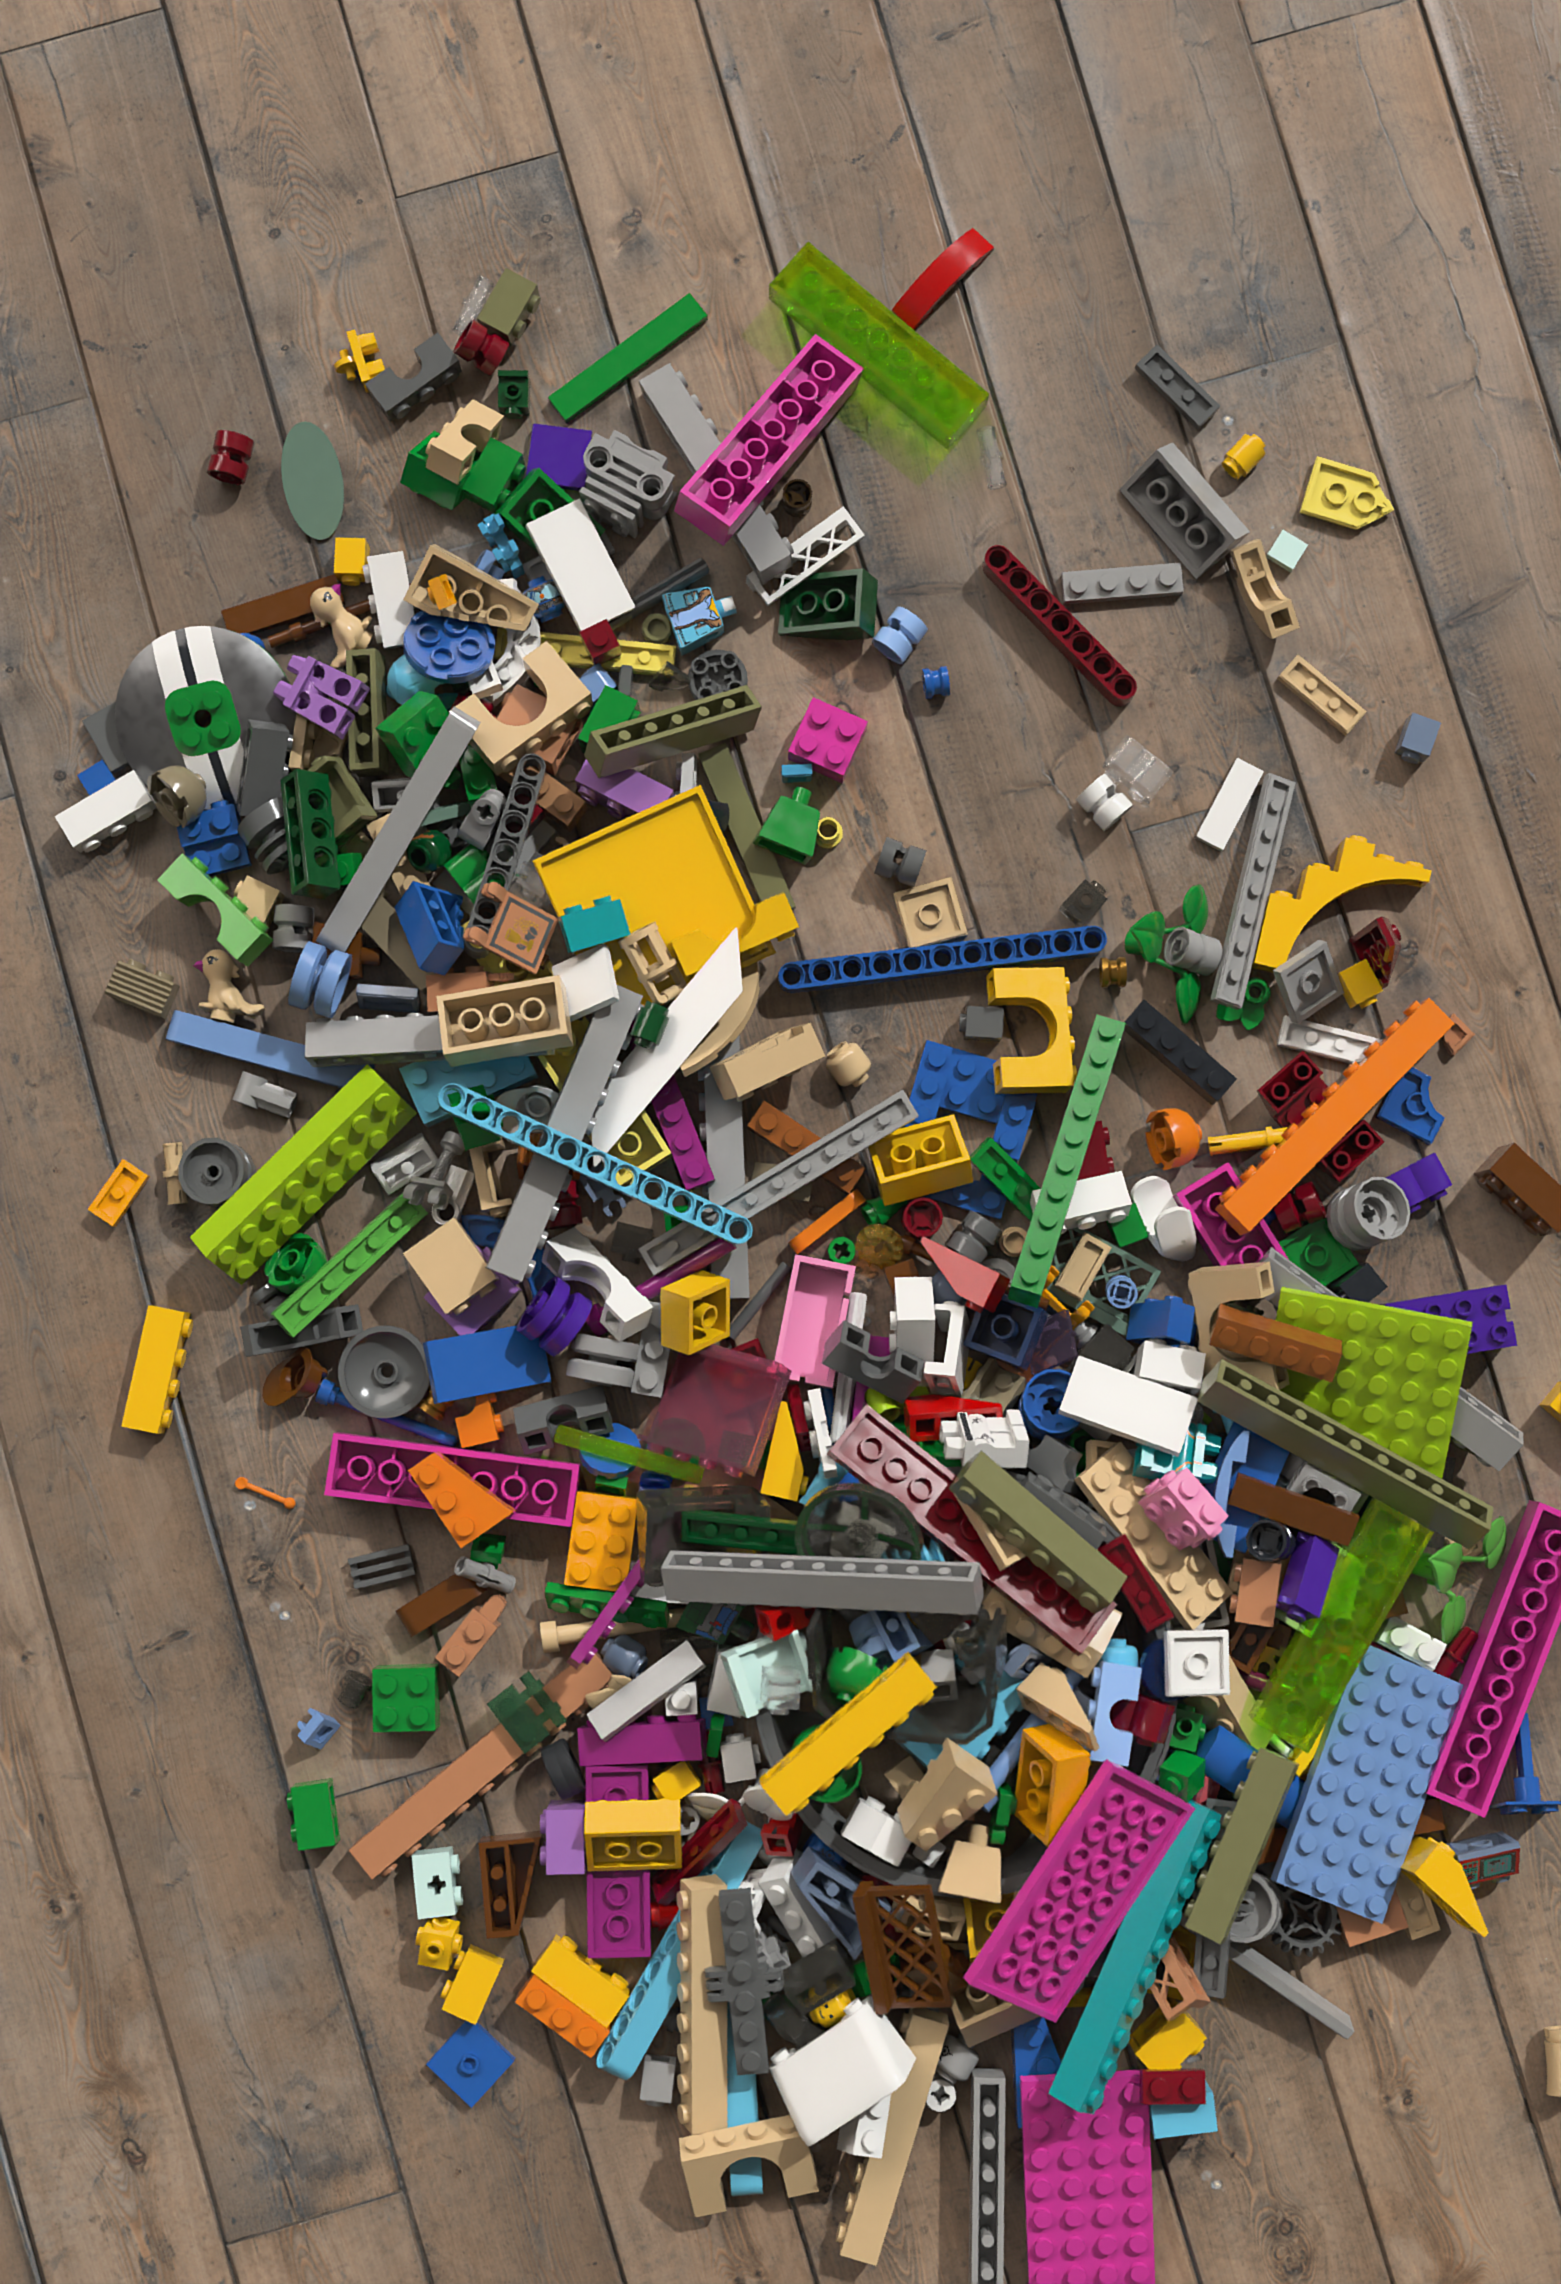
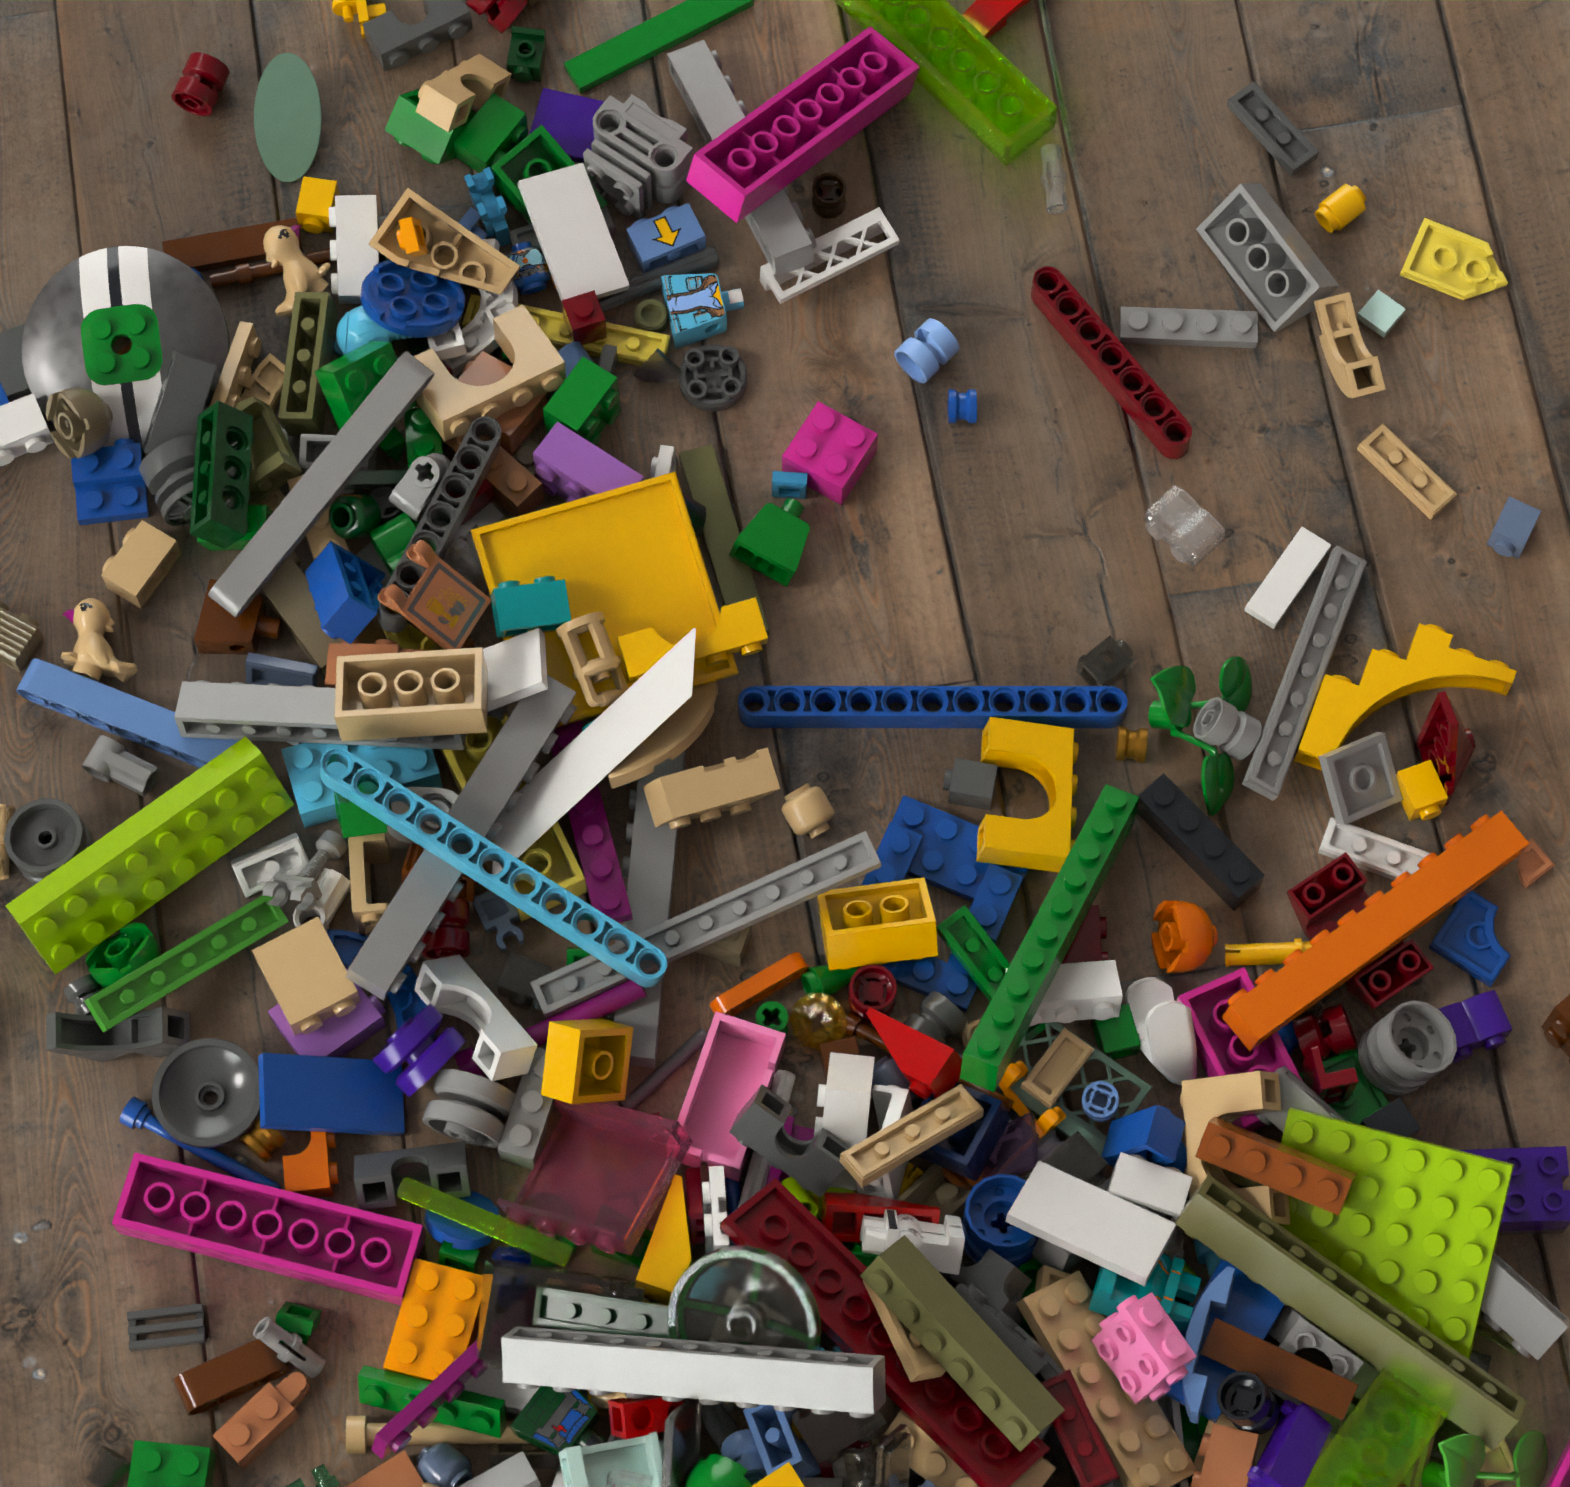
camera: 10 degrees right, 15 degrees down
(239, 933) = (121, 575): bright green arch -> none
(242, 1483) = (15, 1209): orange hinge -> none
(293, 927) = (186, 581): light grey wheel -> none
(293, 1377) = (100, 1090): reddish brown piece -> none
(312, 688) = (261, 332): medium lavender hips -> none
(320, 979) = (206, 634): medium blue wheel -> none
(458, 1499) = (274, 1244): orange wedge -> none
(650, 1025) = (579, 724): dark green brick -> none
(660, 555) = (665, 237): none -> medium blue brick
(672, 731) = (651, 414): olive brick -> none
(793, 1137) = (719, 874): dark orange arch -> none
(829, 842) = (817, 564): light yellow piece -> none
(830, 606) = (852, 312): dark green slope -> none
(910, 865) = (908, 597): dark grey wheel -> none
(930, 913) = (925, 654): tan tile -> none
(972, 1350) = (911, 1135): none -> tan tile
(1104, 802) = (1144, 559): white wheel -> none
(1252, 1008) = (1289, 805): green plate -> none
(1298, 1254) = (1331, 1086): none -> dark red panel

